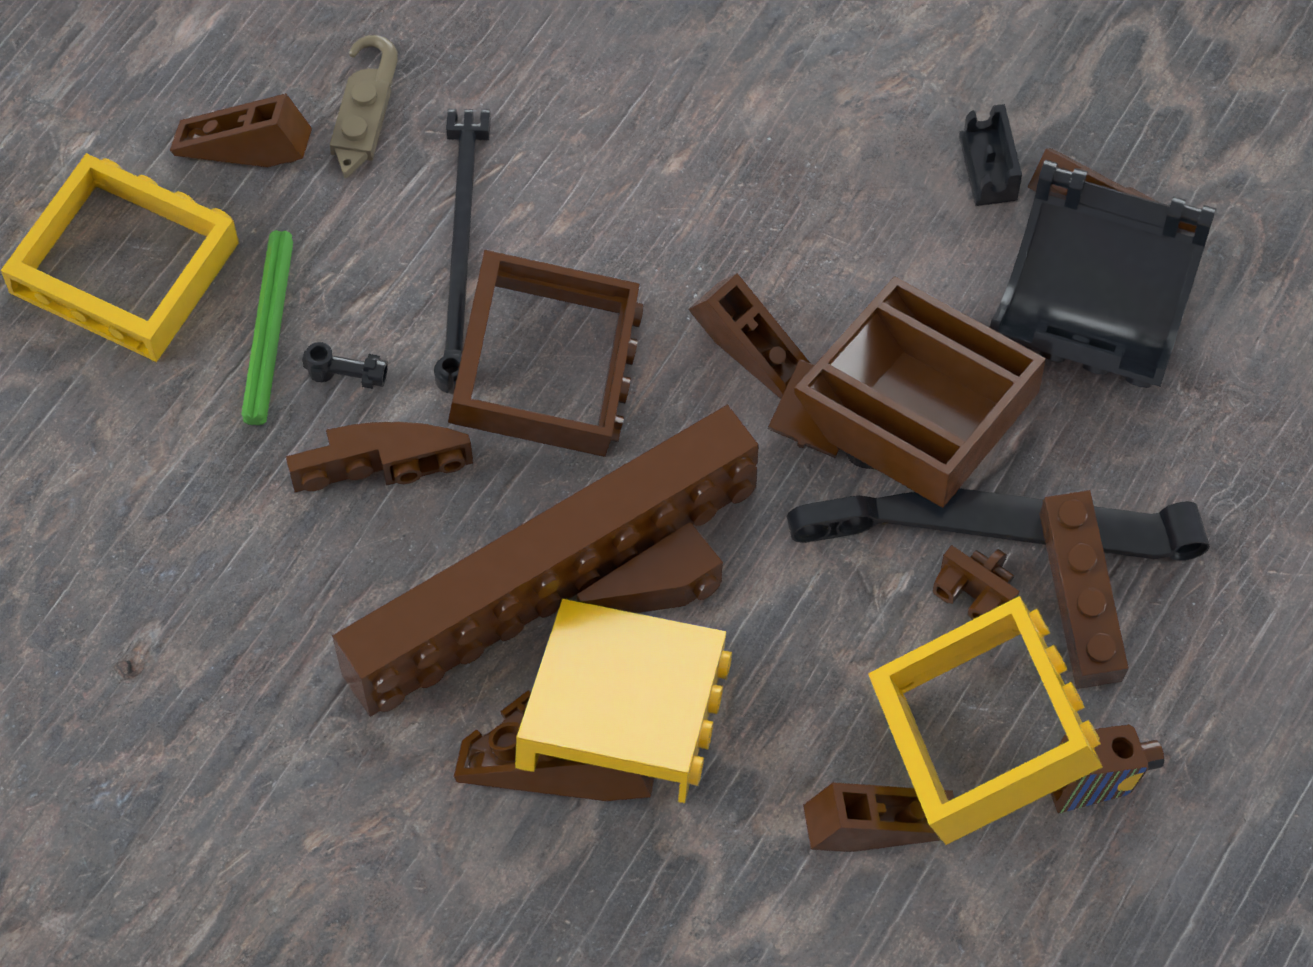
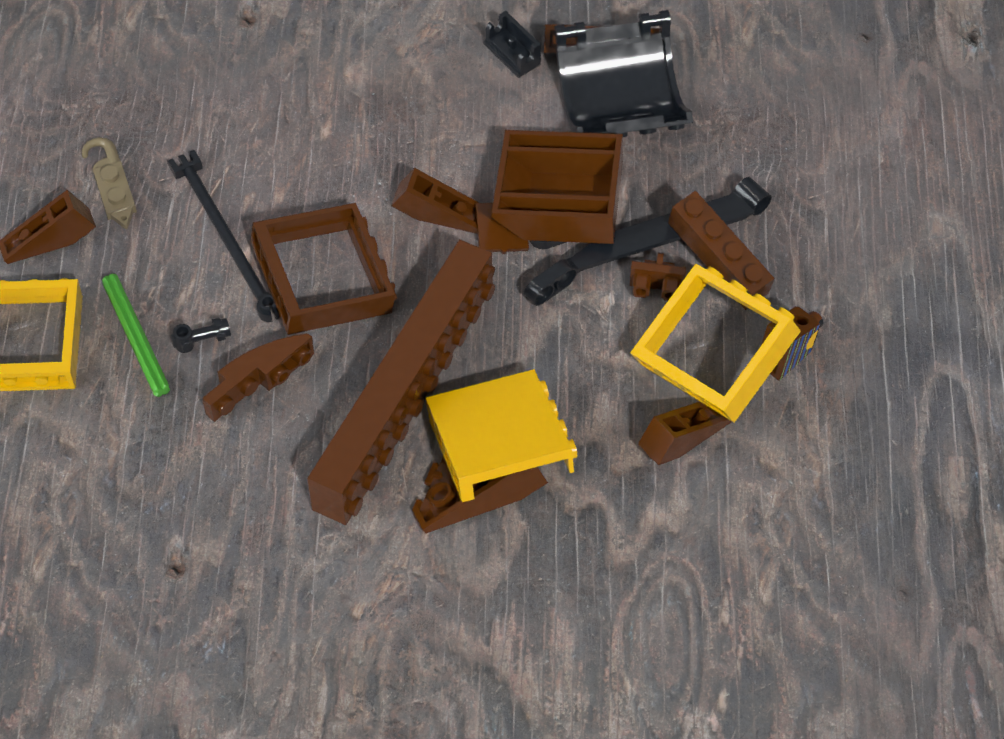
camera: 30 degrees left, 5 degrees down
(661, 576) = (474, 358): reddish brown slope -> none

